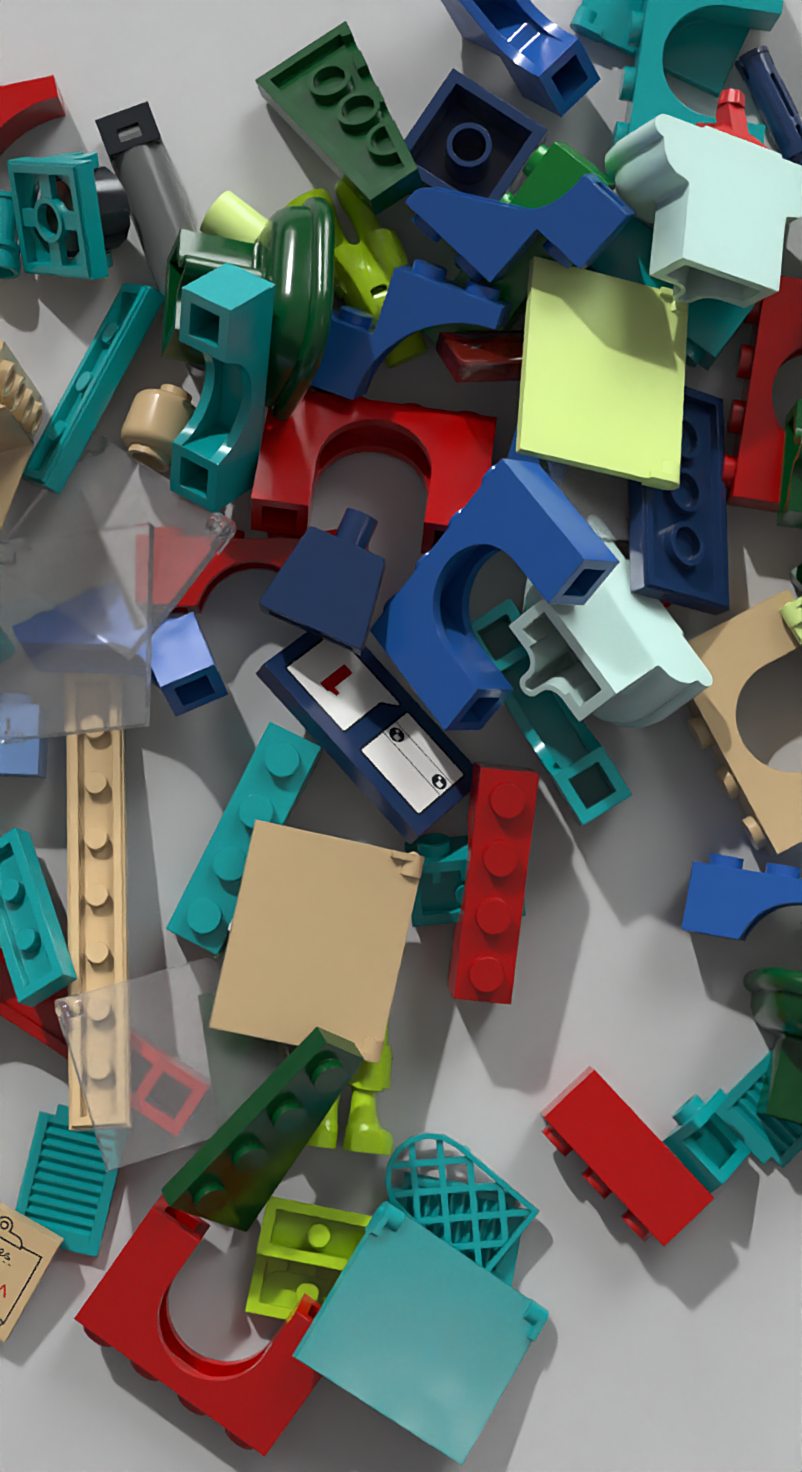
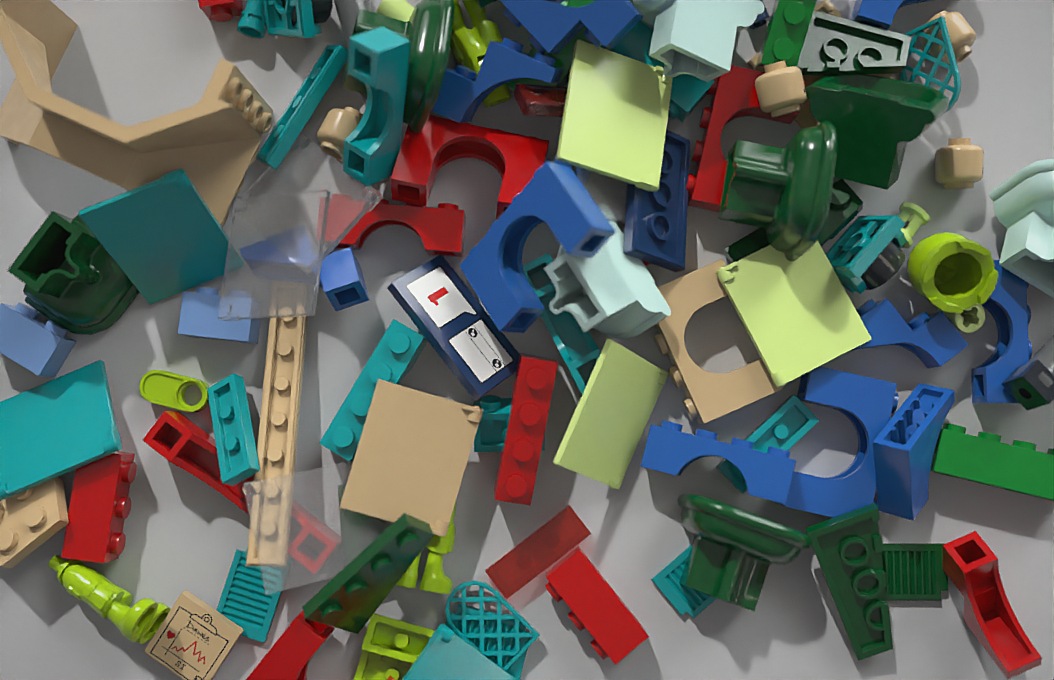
camera: 10 degrees right, 0 degrees up
(330, 583) = (437, 235): dark blue torso -> none
(526, 1079) = (537, 551): none -> clear red tile
(630, 851) = (611, 415): none -> yellowish green piece
(705, 1141) = (646, 599): teal bracket -> none

